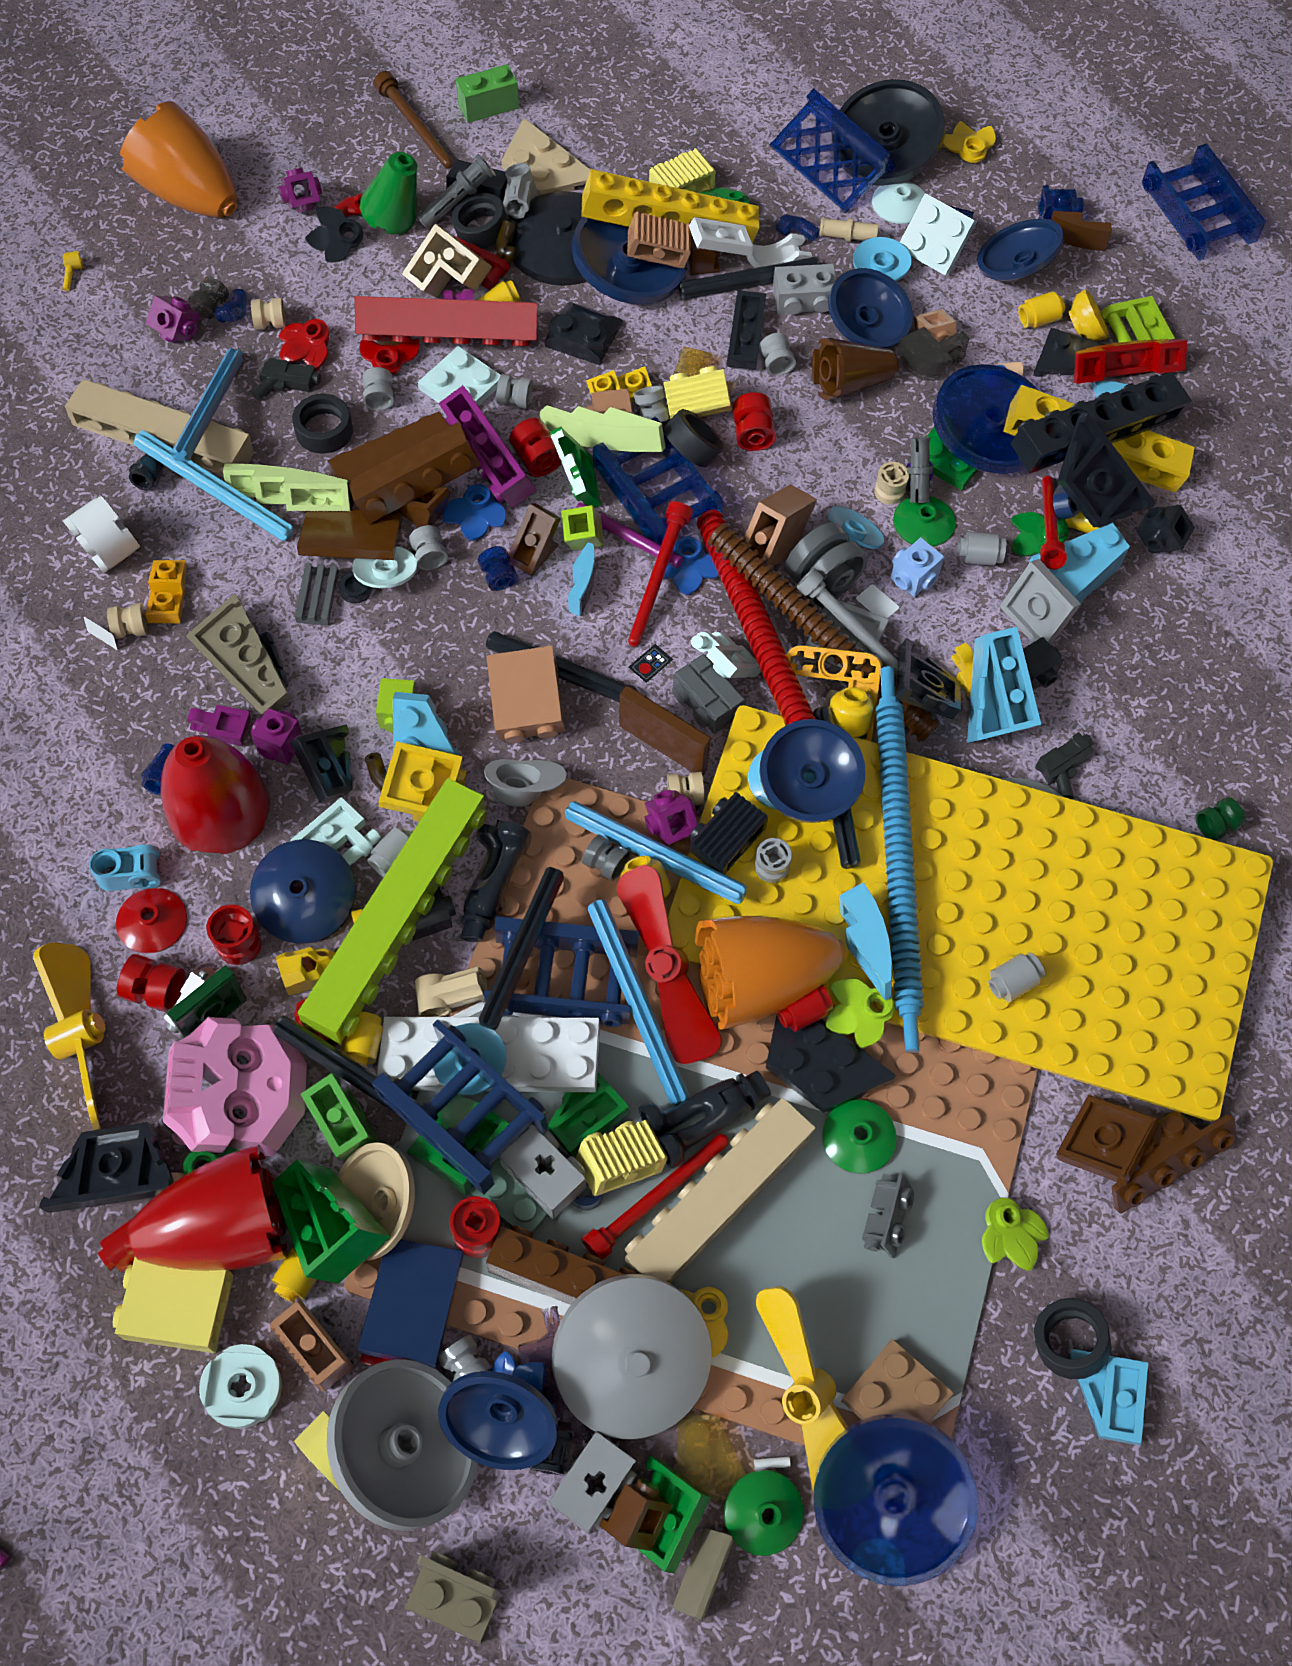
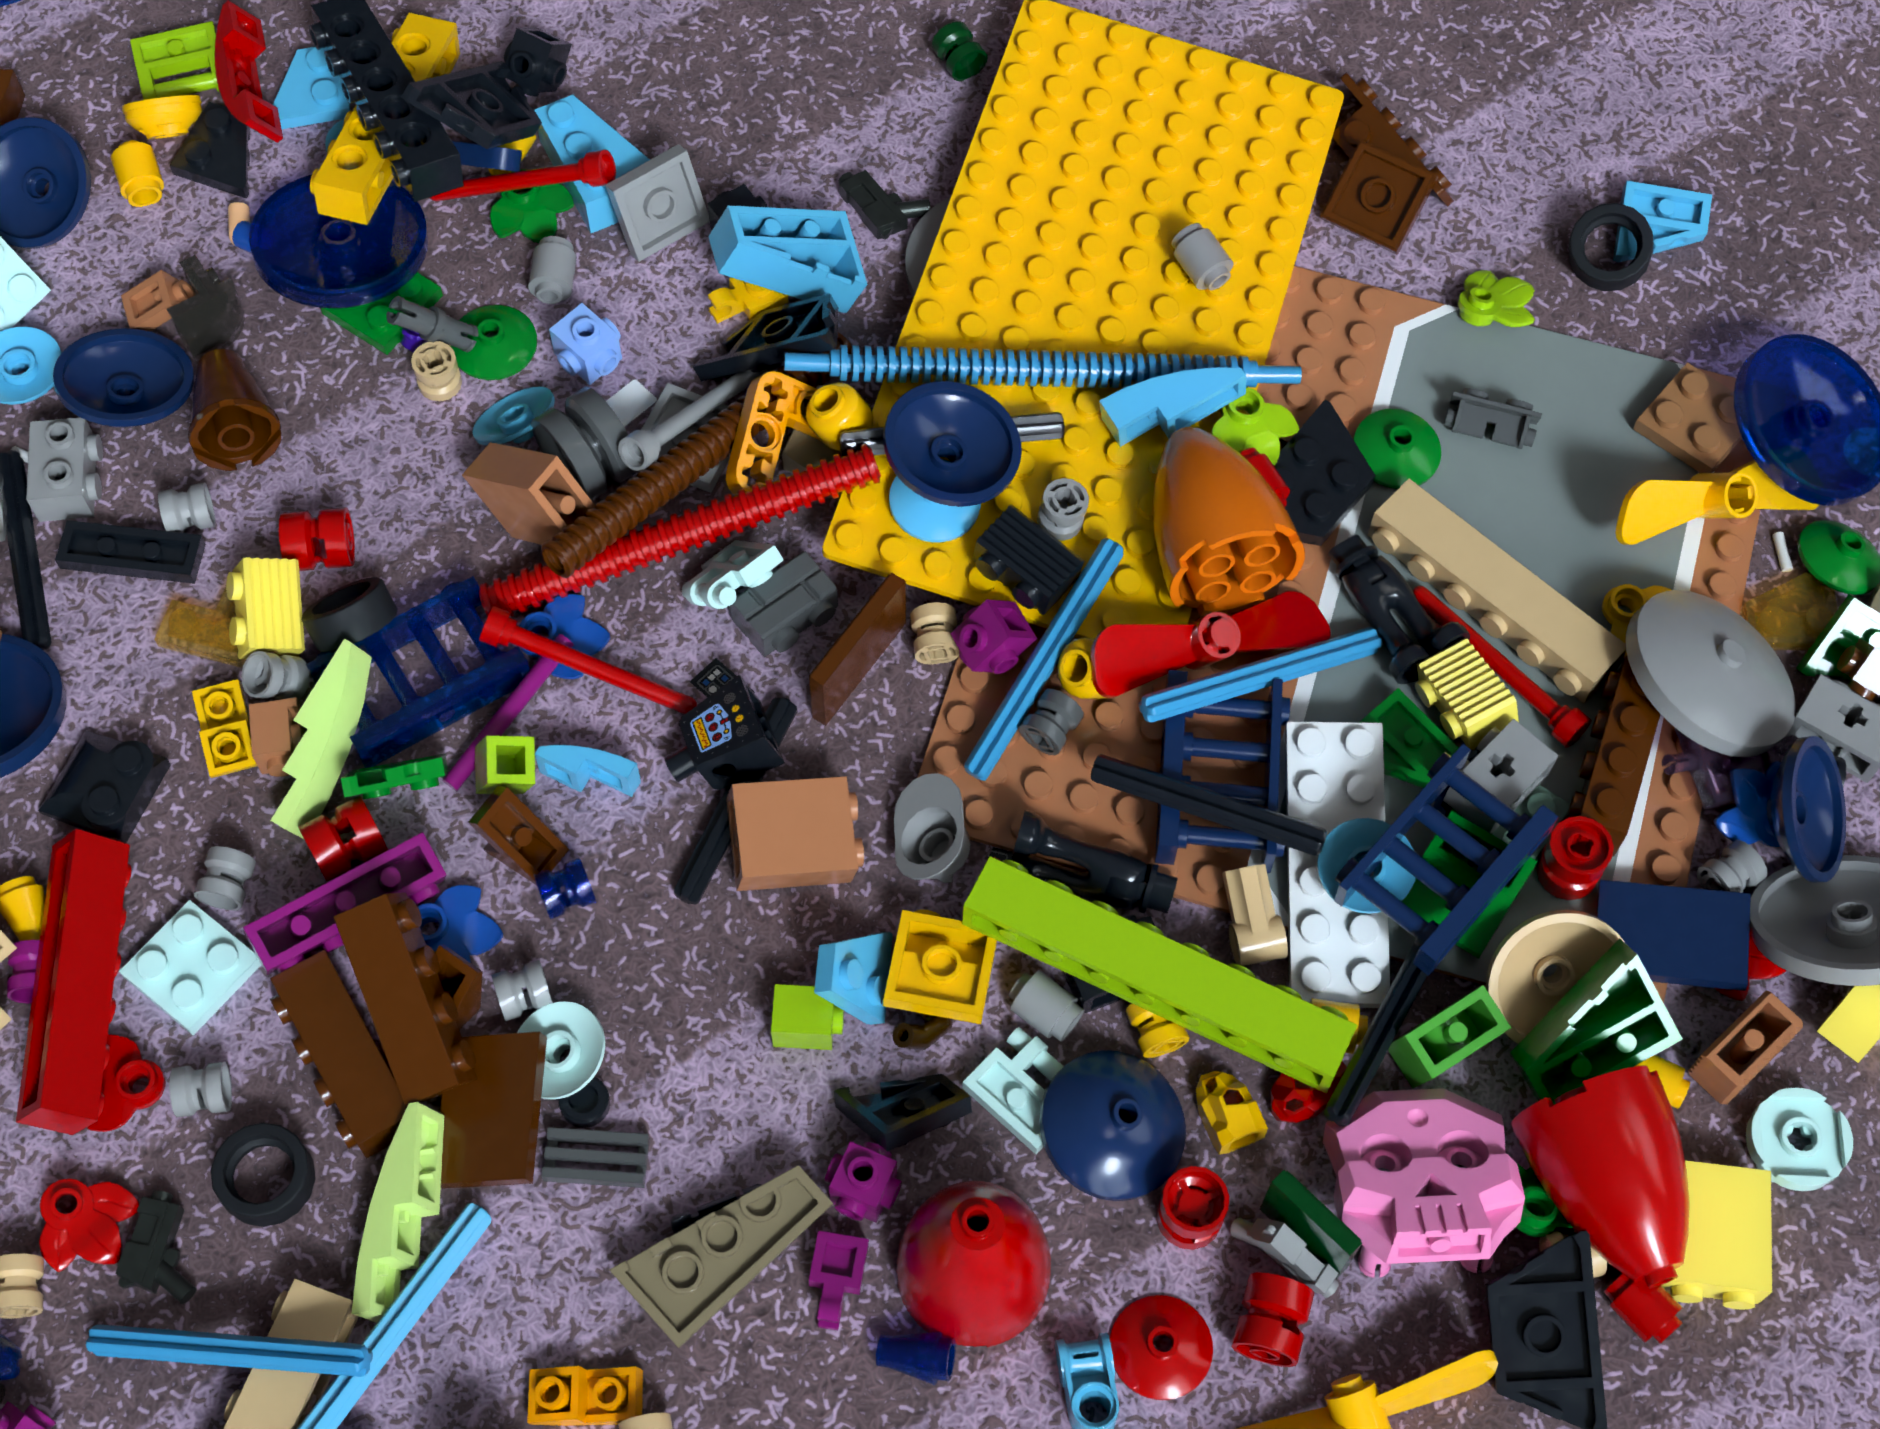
camera: 90 degrees left, 0 degrees up
(600, 655) = (726, 738): none -> black torso

